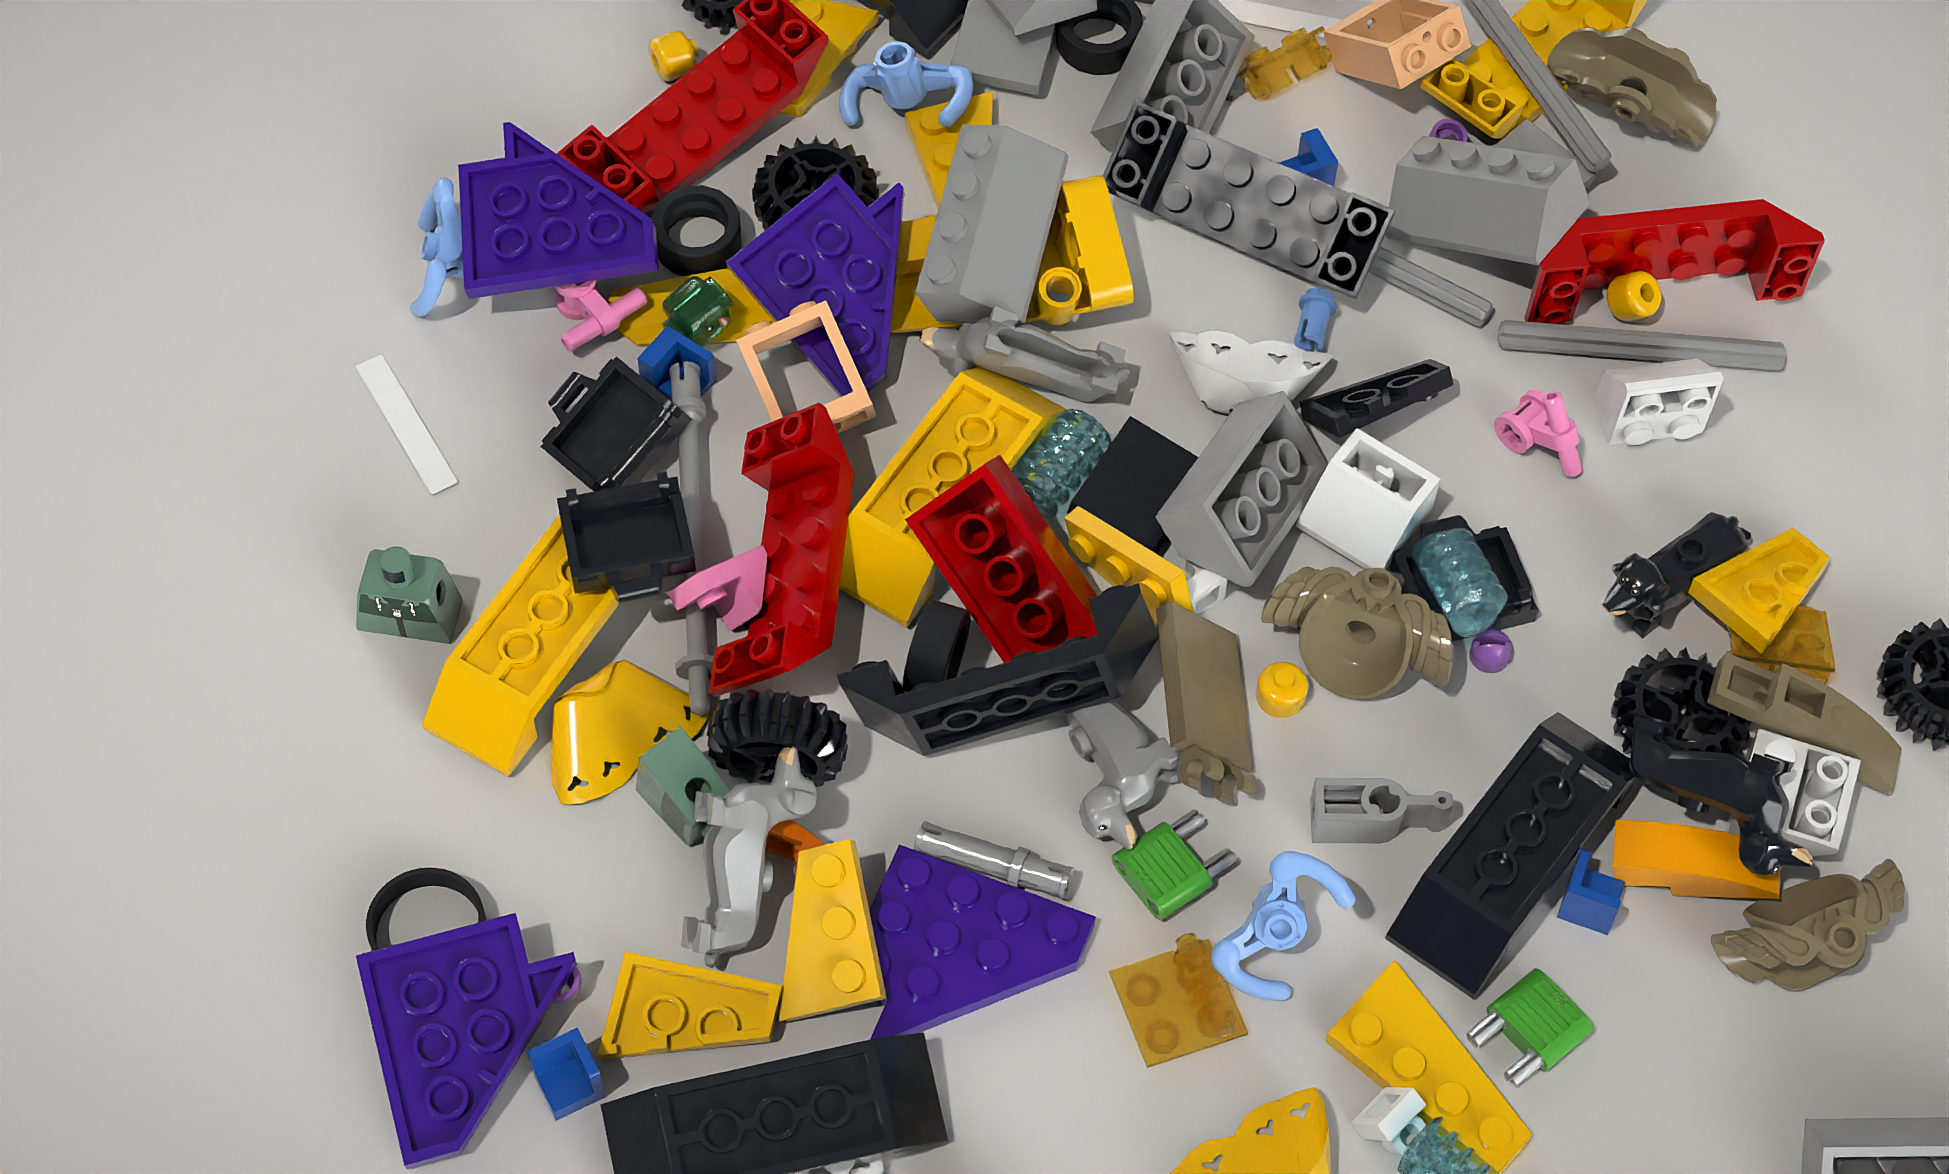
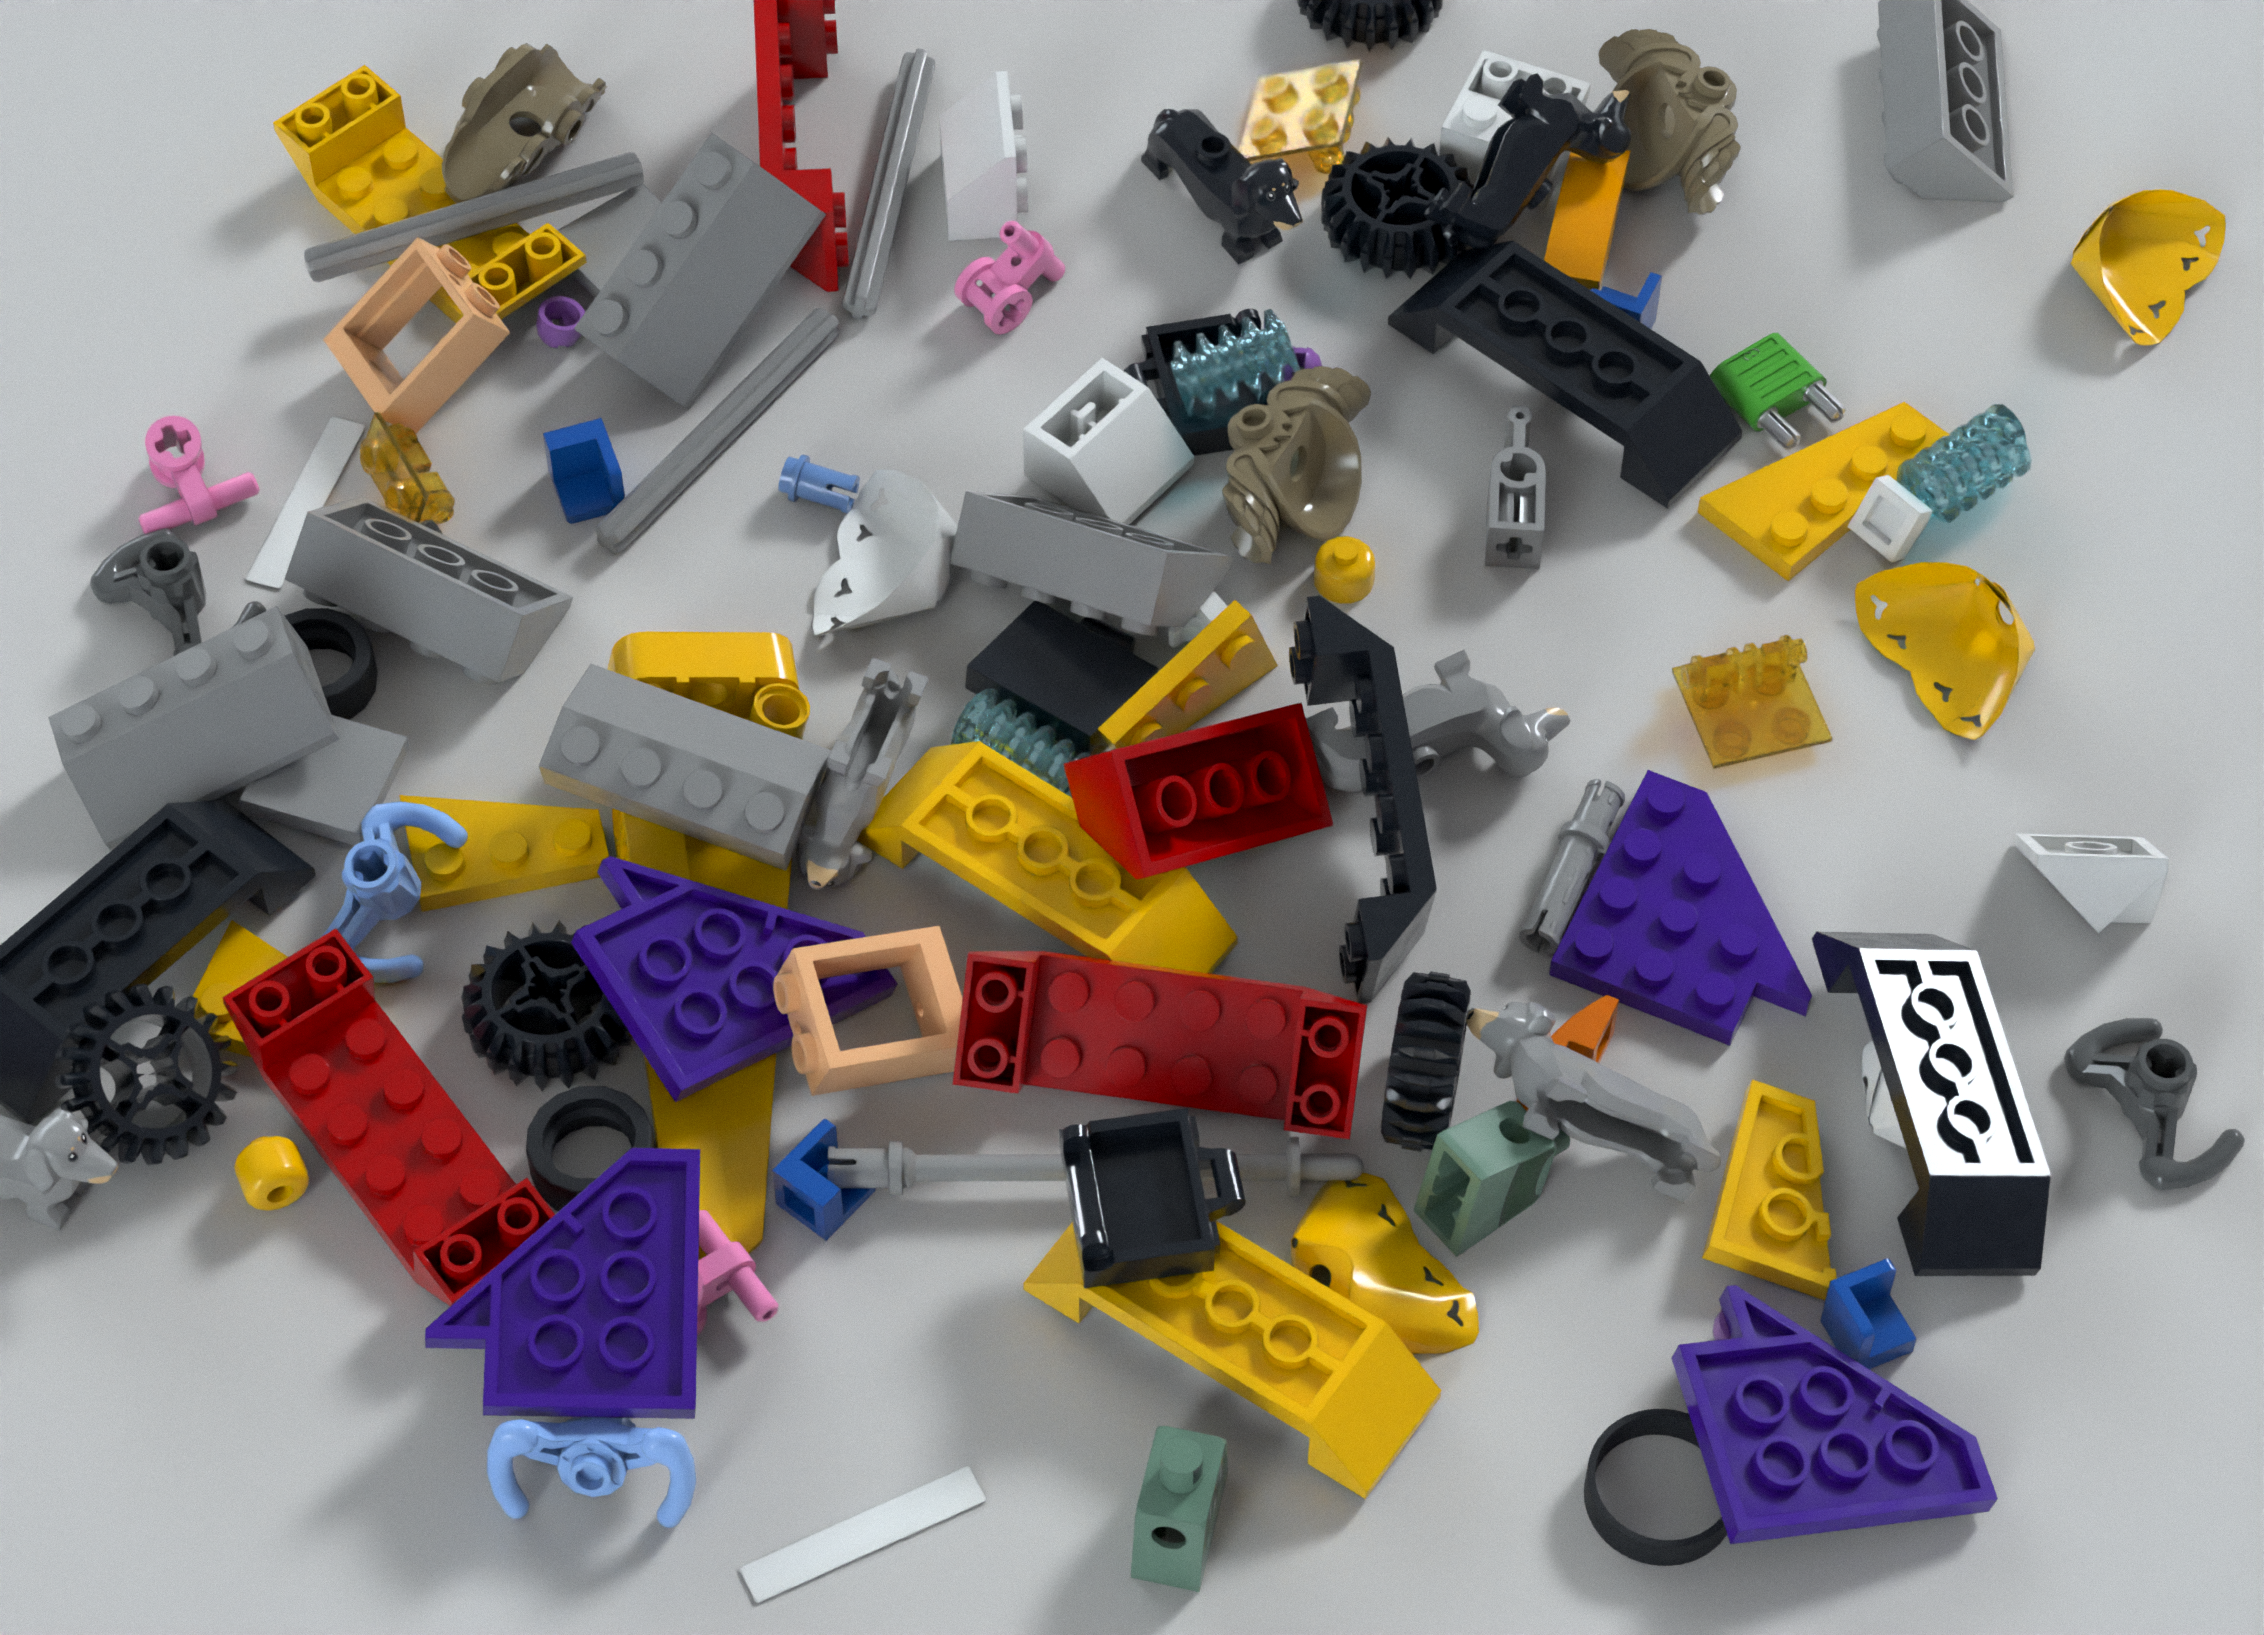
camera: 85 degrees left, 5 degrees down
(613, 428) = (926, 1249): black piece -> none
(698, 310) = (739, 1144): clear green head -> none
(731, 586) = (1203, 1095): bright pink slope -> none
(831, 936) = (1691, 1015): yellow wing -> none
(937, 644) = (1308, 864): black tyre -> none
(1165, 869) = (1587, 690): bright green piece -> none
(1205, 701) = (1406, 624): dark tan tile -> none
(1246, 200) = (659, 502): slope -> none
(1278, 922) = (1667, 582): light blue piece -> none
(1376, 397) = (954, 428): black wing -> none
(1634, 296) = (842, 164): yellow piece -> none
(1761, 586) = (1250, 110): yellow wing -> none
(1806, 712) = (1418, 94): dark tan slope -> none

